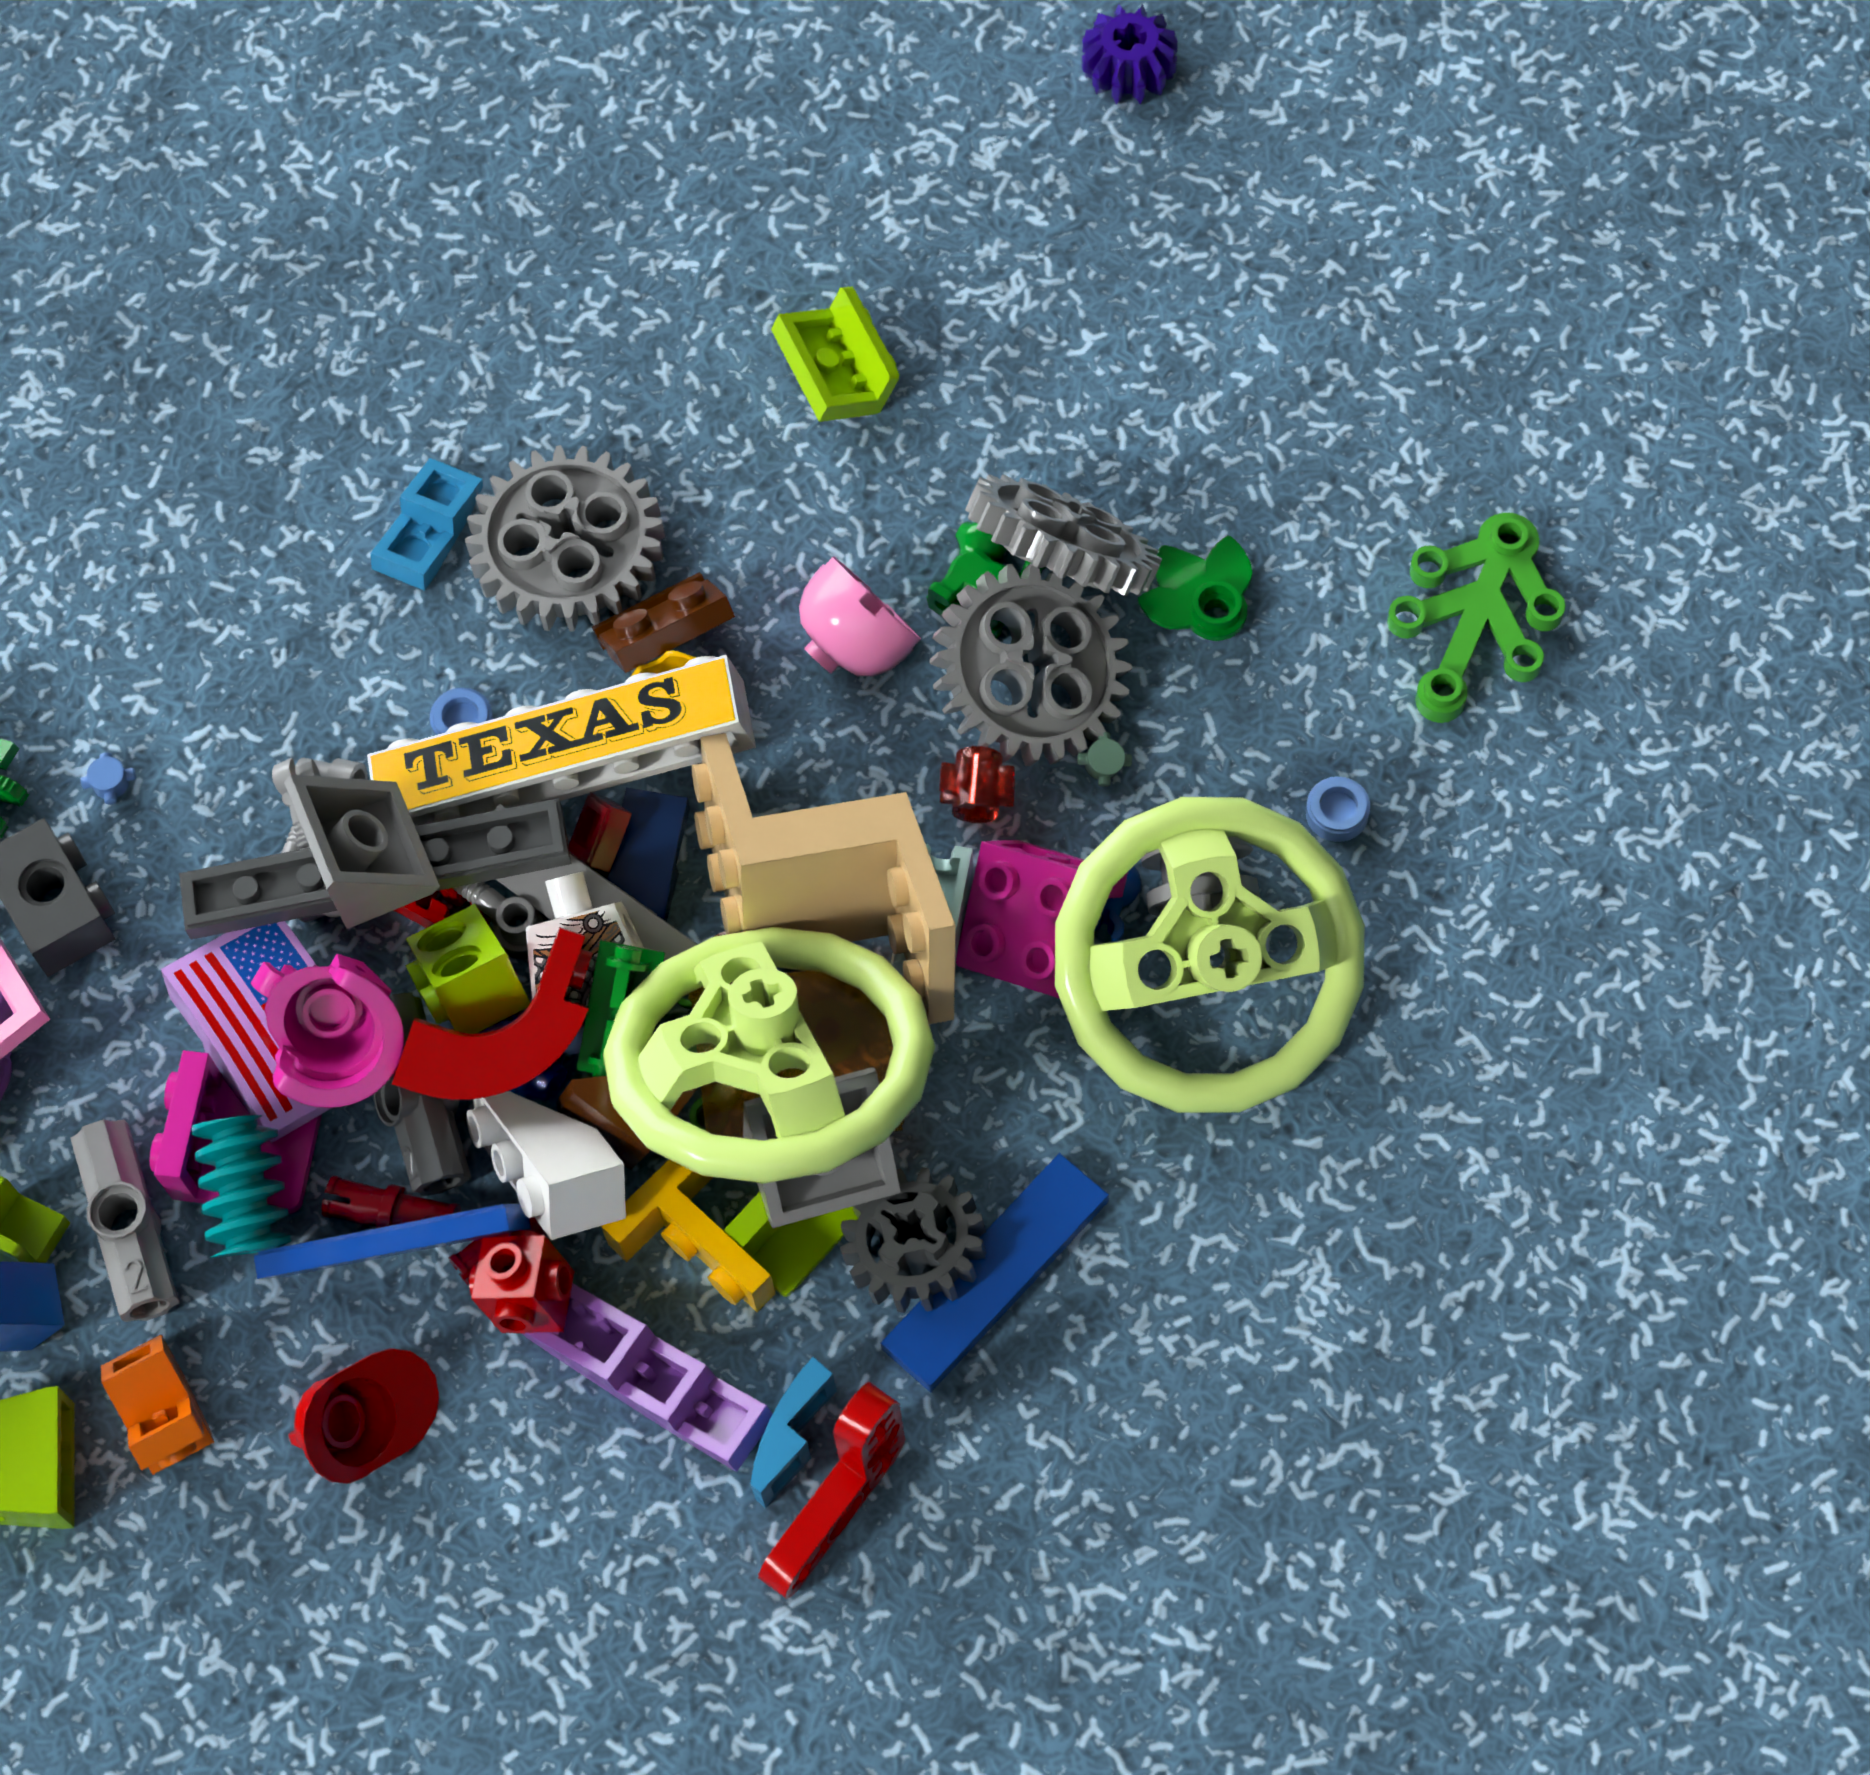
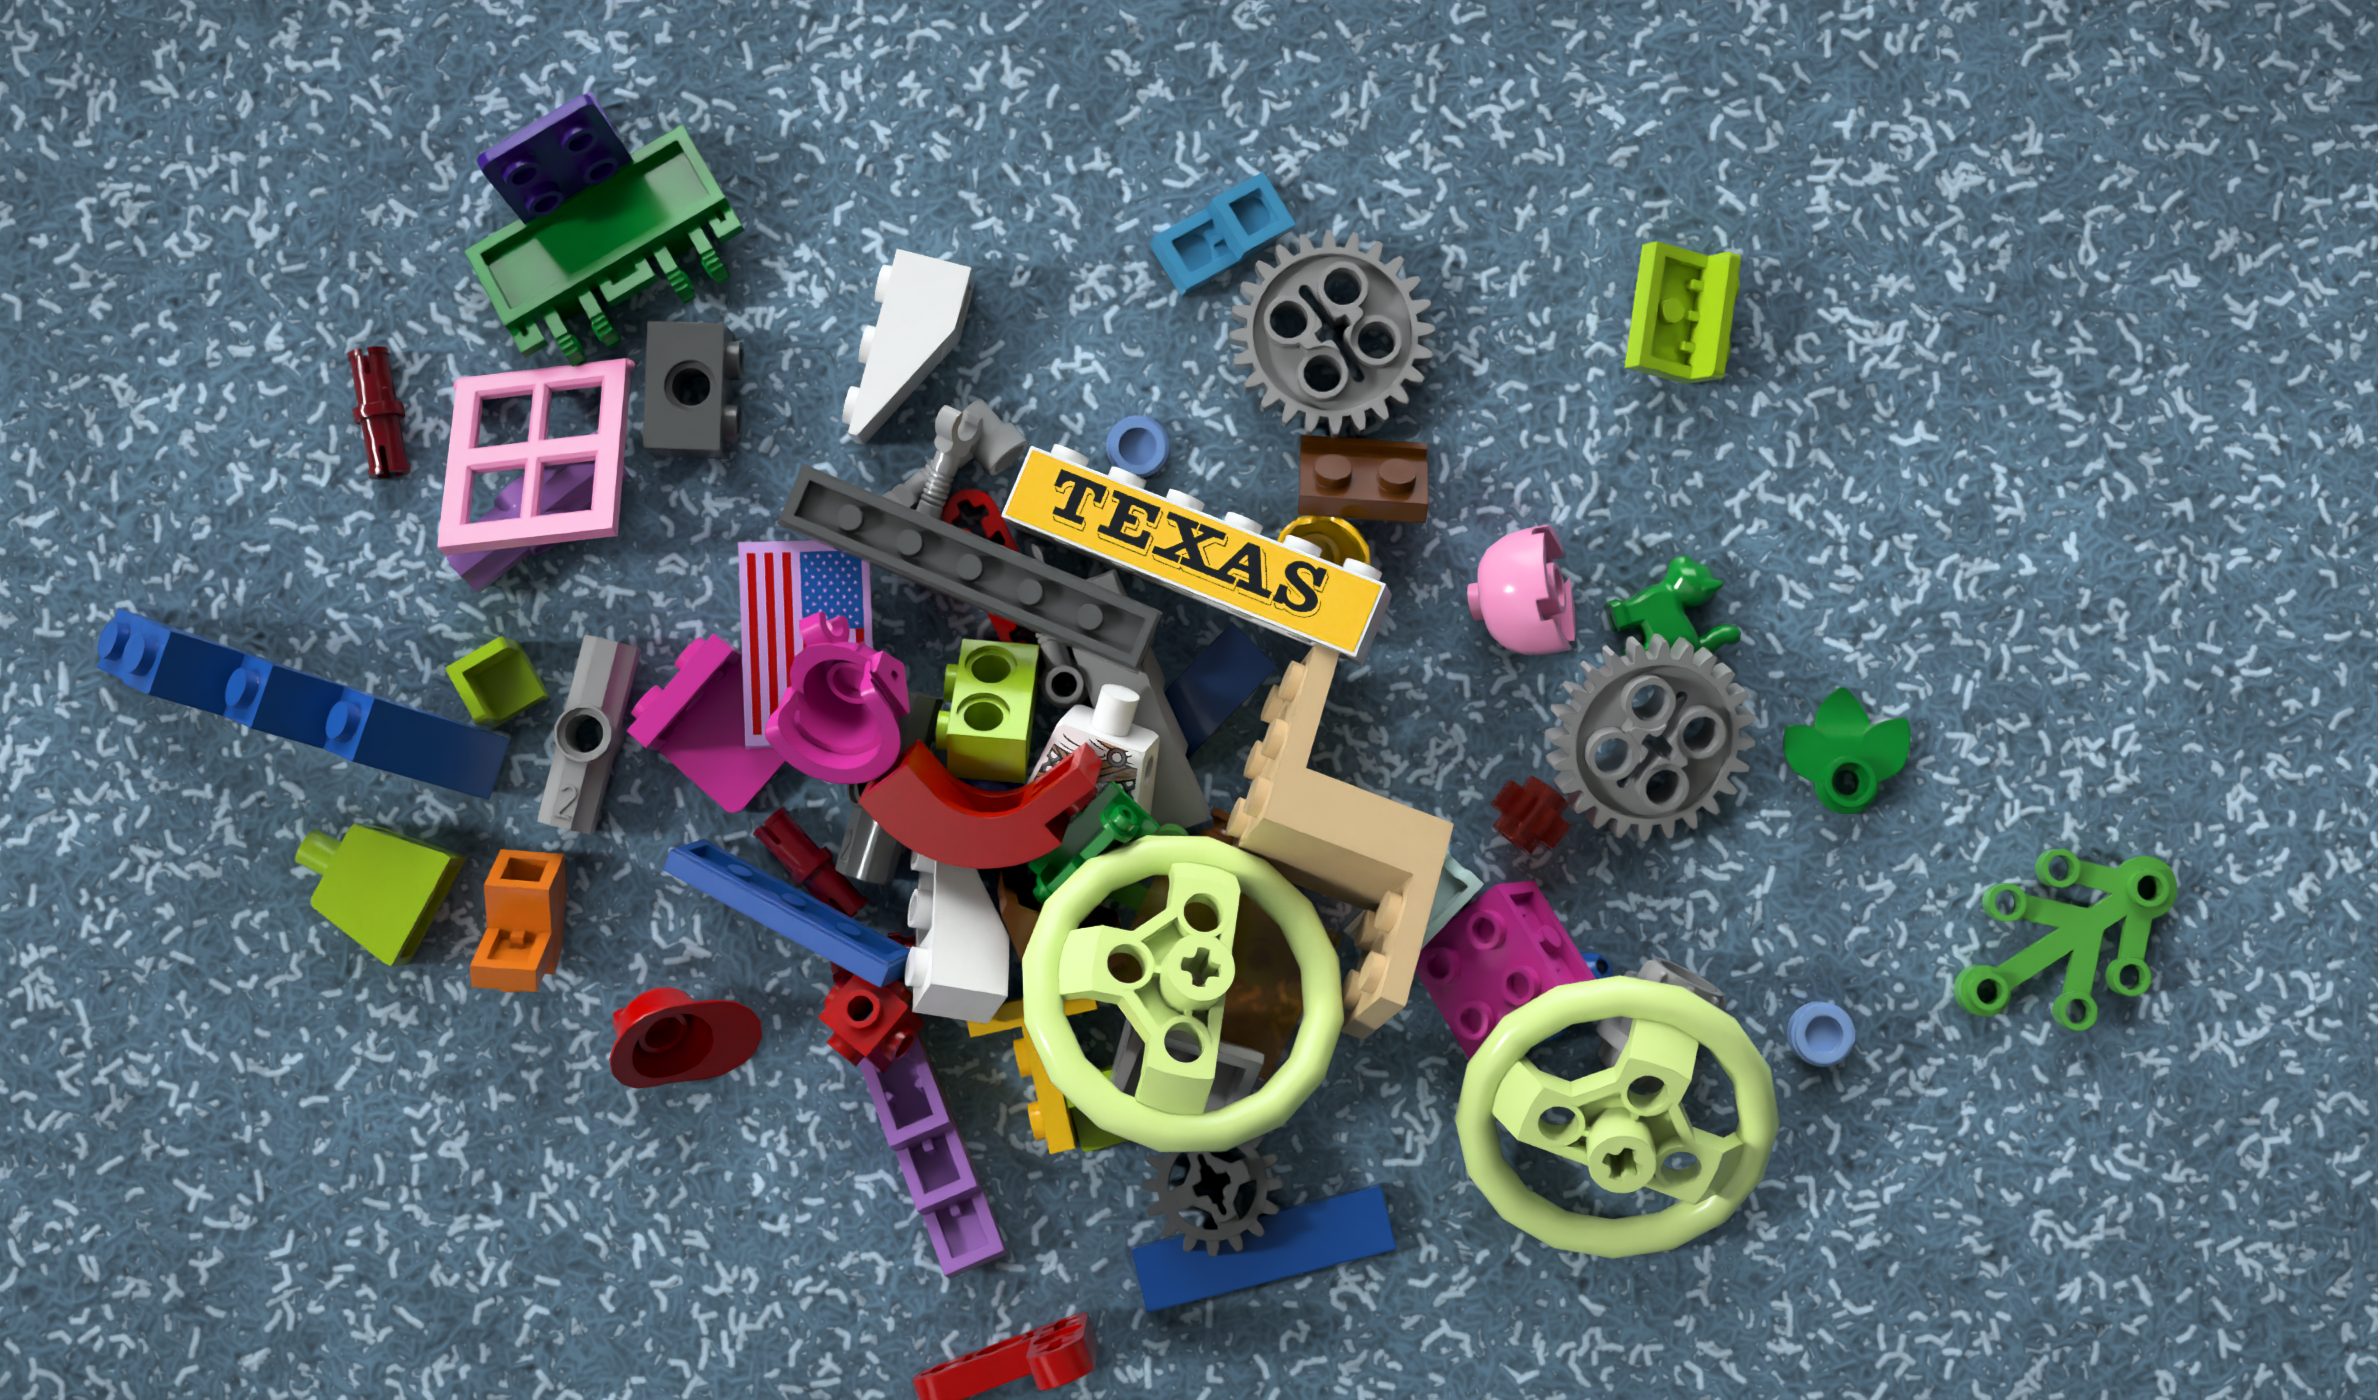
camera: 25 degrees right, 20 degrees up
(108, 778) = (807, 303): medium blue piece -> none
(216, 742) = (916, 329): none -> white slope
(240, 1185) = (698, 785): teal piece -> none
(362, 844) = (966, 555): light grey slope -> none
(599, 831) = (1185, 645): dark red tile -> none
(782, 1449) = (996, 1287): dark azure slope -> none
(1063, 535) = (1757, 646): light grey gear -> none
(1104, 759) = (1655, 857): sand green piece -> none
(1129, 54) = (2135, 183): dark purple gear -> none

